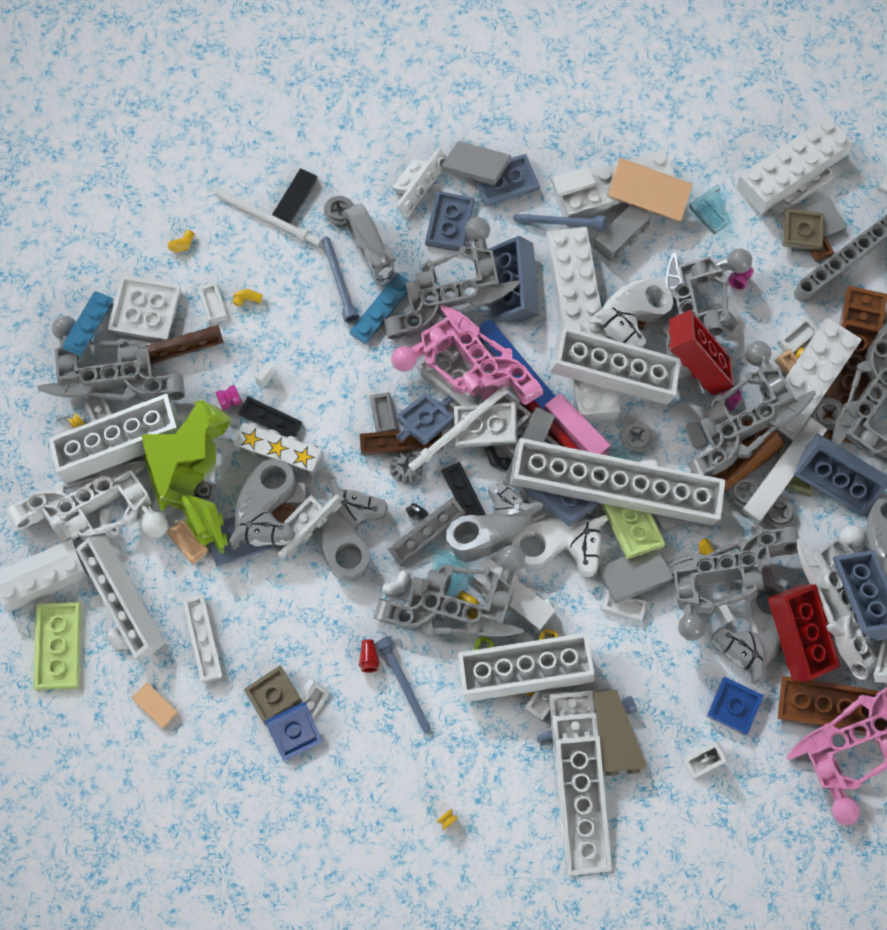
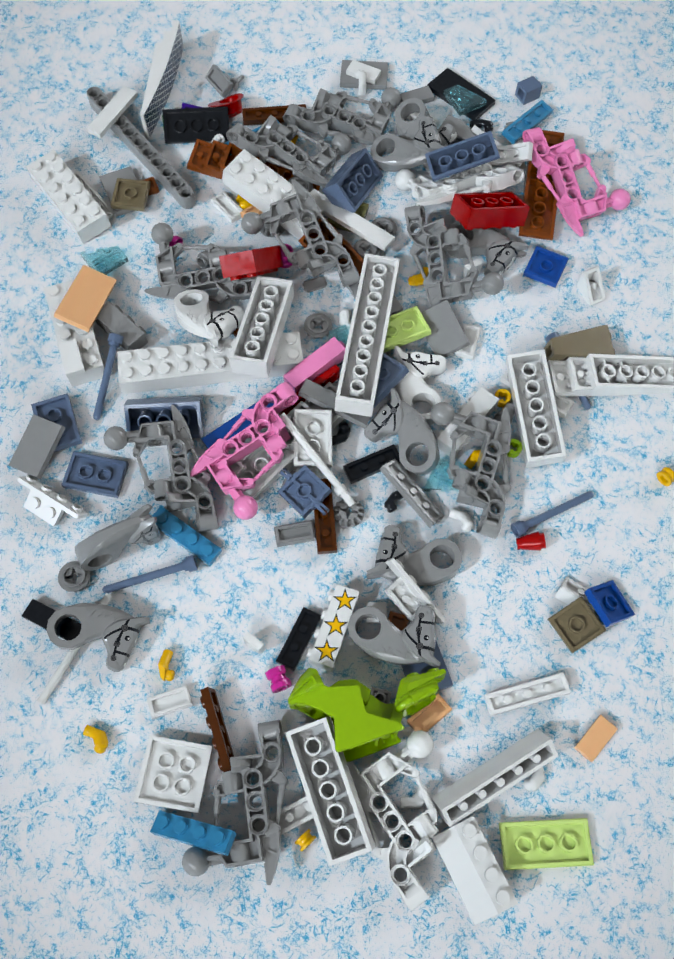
camera: 85 degrees left, 5 degrees down
(289, 233) = (102, 622): none -> light grey animal

